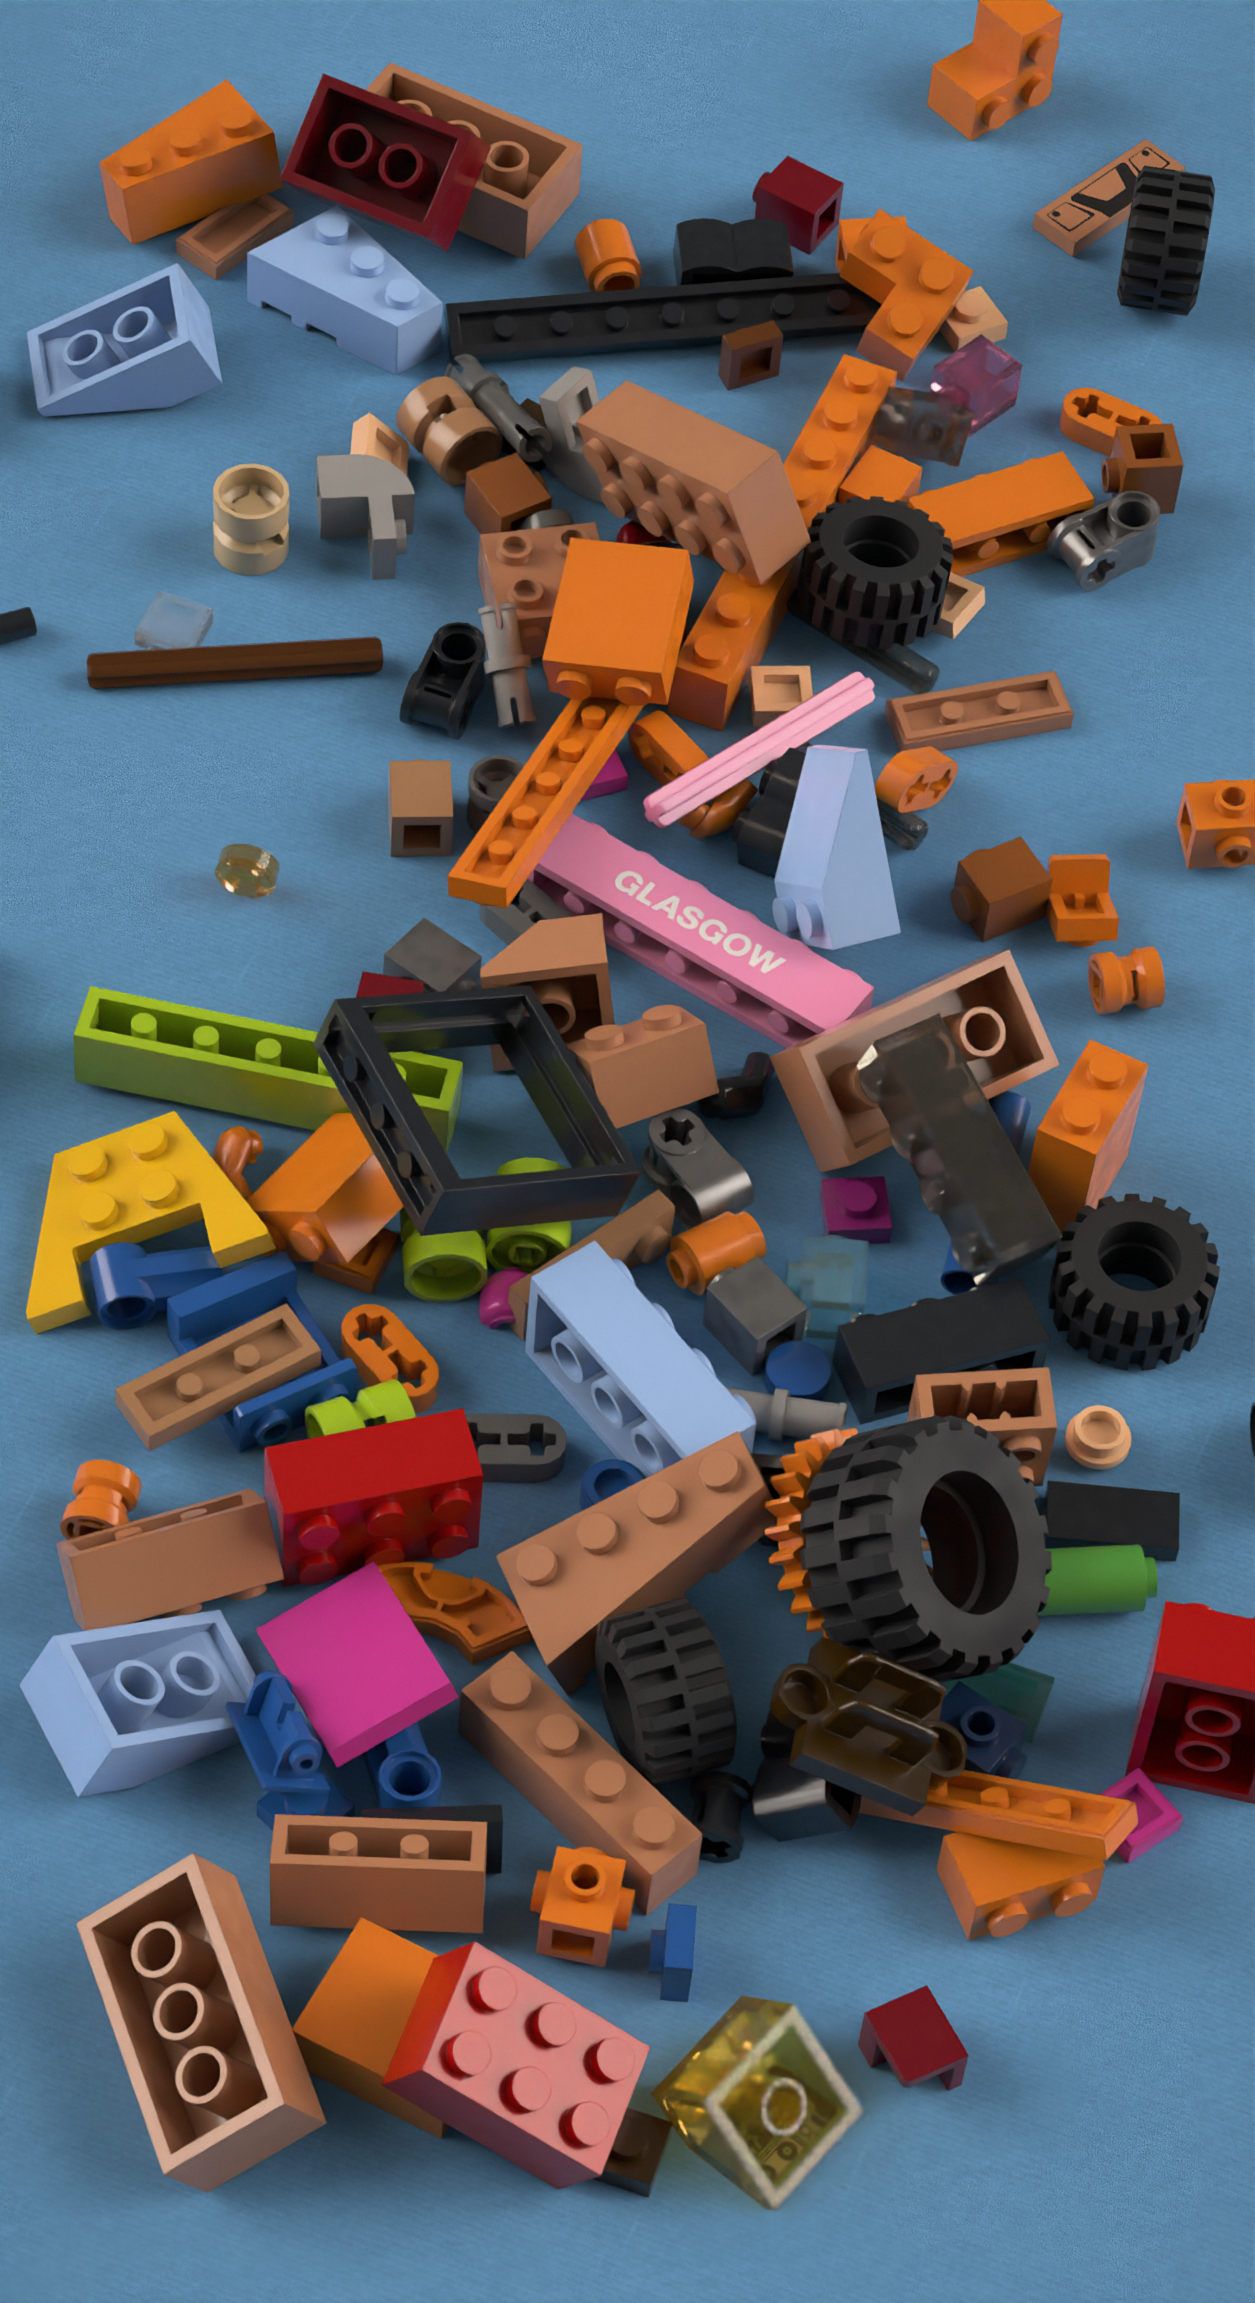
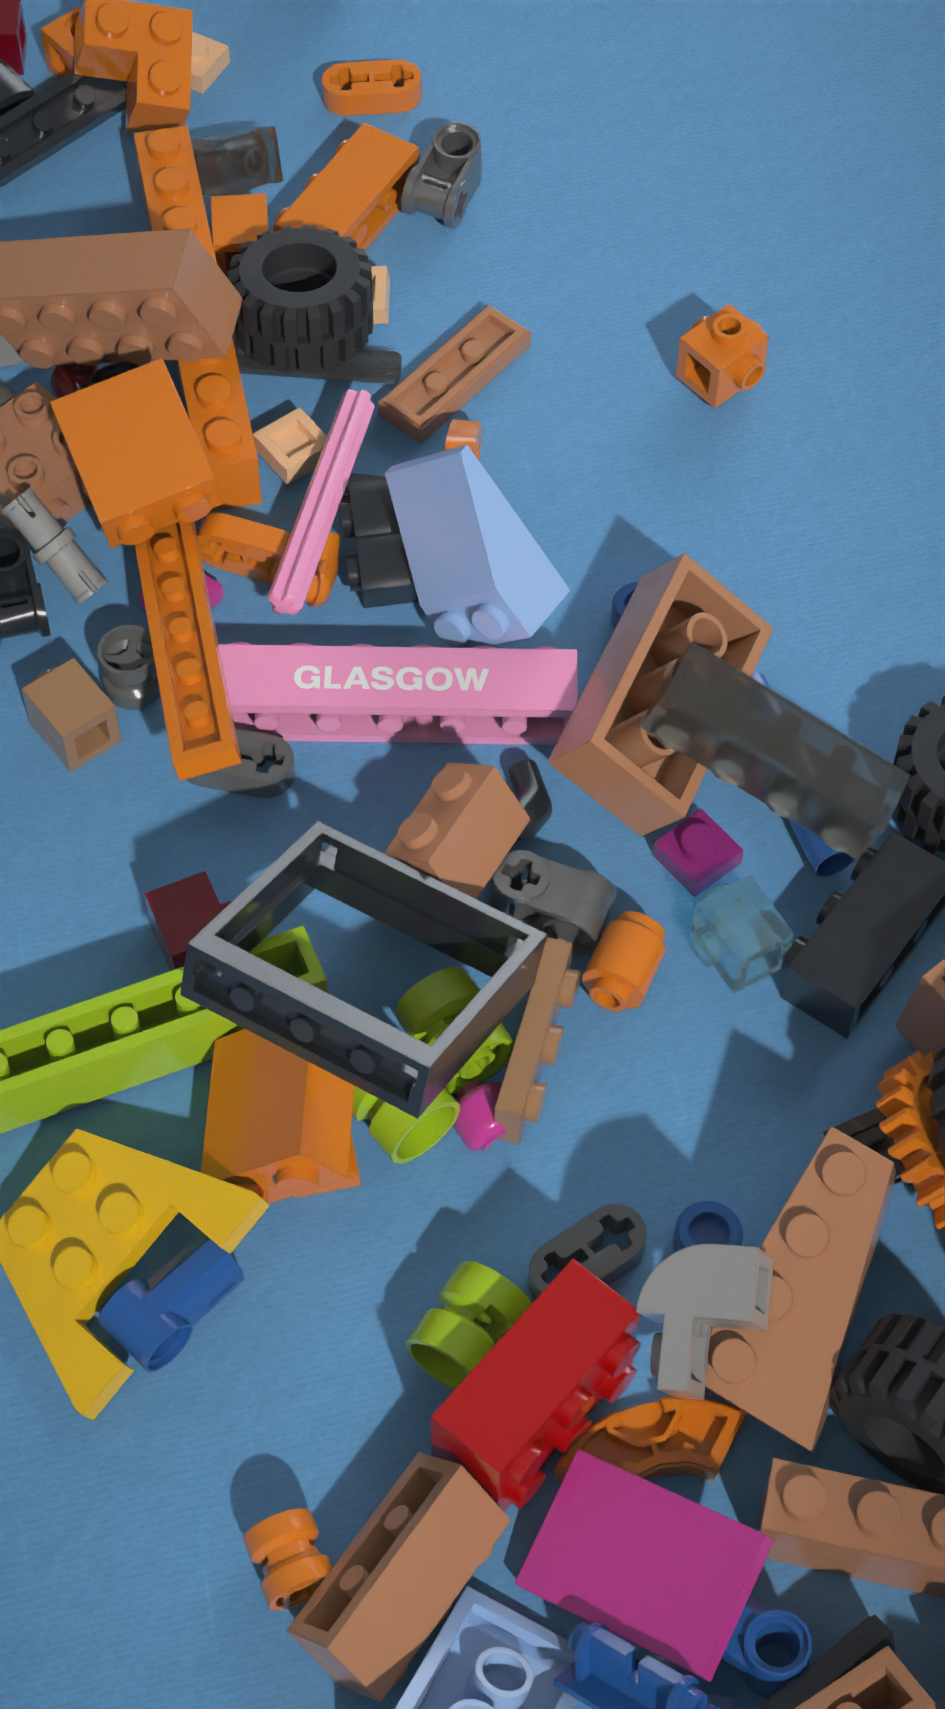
camera: 30 degrees left, 5 degrees up
(217, 1377) = (304, 1362): medium nougat plate -> none
(235, 1150) = (146, 1131): orange arm -> none
(237, 1299) = (317, 1311): blue panel -> none
(399, 1352) = (428, 1235): orange beam -> none
(433, 958) = (199, 844): flat silver brick -> none
(530, 1489) = (700, 1291): none -> light grey brick
(566, 970) = (330, 783): nougat slope -> none
(627, 1364) = (671, 1124): light blue brick -> none
(750, 355) = (47, 176): reddish brown plate -> none
(752, 1313) = (698, 998): flat silver brick -> none
(792, 1416) = (788, 1075): light grey pin -> none
(798, 1368) = (769, 1028): blue tile -> none
(980, 379) = (245, 97): clear pink brick -> none
(1000, 889) = (595, 507): dark orange brick -> none
(1080, 900) = (662, 484): orange bracket -> none
(1087, 1131) = (852, 667): orange brick -> none
(1126, 980) = (757, 521): orange wheel -> none
(1144, 461) = (431, 98): dark orange brick -> none

